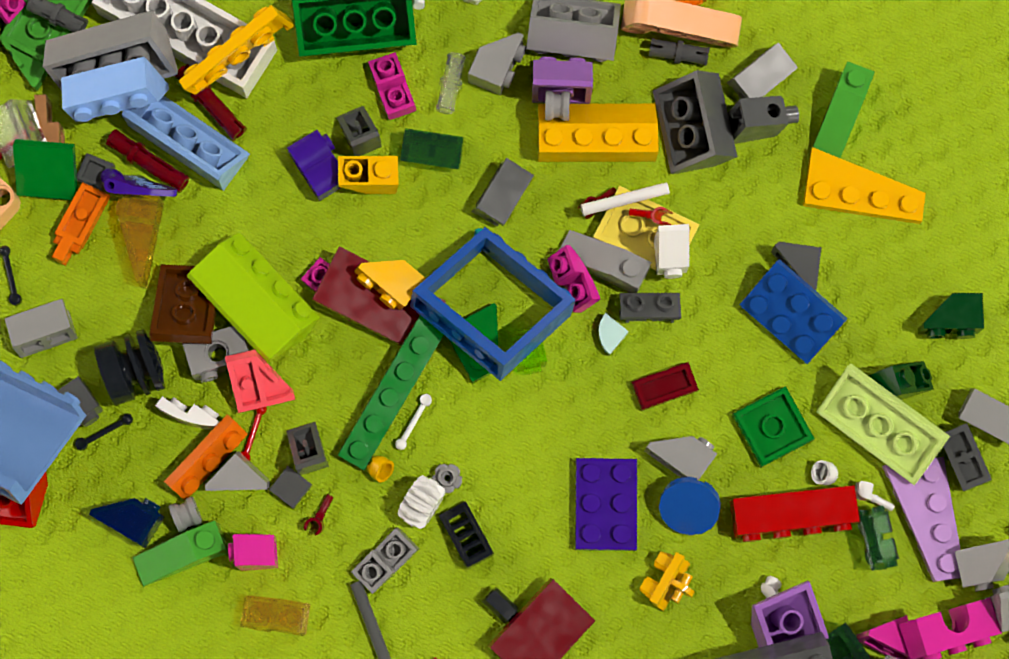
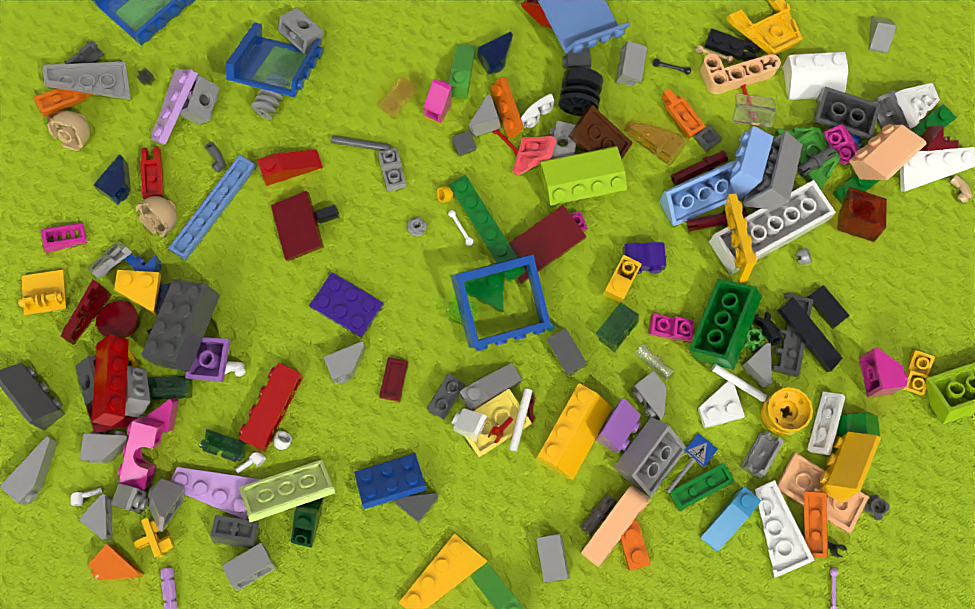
camera: 115 degrees right, 5 degrees down
(45, 169) = (723, 108): green tile -> none
(51, 130) = (740, 124): medium nougat slope -> none
(82, 443) = (553, 55): black hinge -> none
(118, 183) = (687, 148): dark purple arm -> none
(185, 514) = (481, 81): light grey wheel -> none
(307, 448) = (479, 161): dark grey slope -> none
(319, 516) = (437, 147): dark red hand -> none
(359, 131) = (652, 291): dark grey slope -> none
(391, 279) = (548, 253): yellow slope -> none
(421, 502) = (410, 201): white gear -> none
(481, 555) = (370, 211): black slope -> none
(557, 105) = (602, 409): light grey wheel -> none
(571, 272) = (496, 362): dark pink slope -> none
(610, 333) = (444, 366): light aqua tile -> none
(673, 582) = (276, 313): yellow hips -> none
(689, 506) = (313, 347): blue tile -> none
(694, 122) = (545, 495): dark grey slope -> none
(760, 118) = (527, 528): dark grey torso -> none
(773, 426) = (330, 428): green tile -> none
(957, 315) = (326, 583): dark green slope -> none

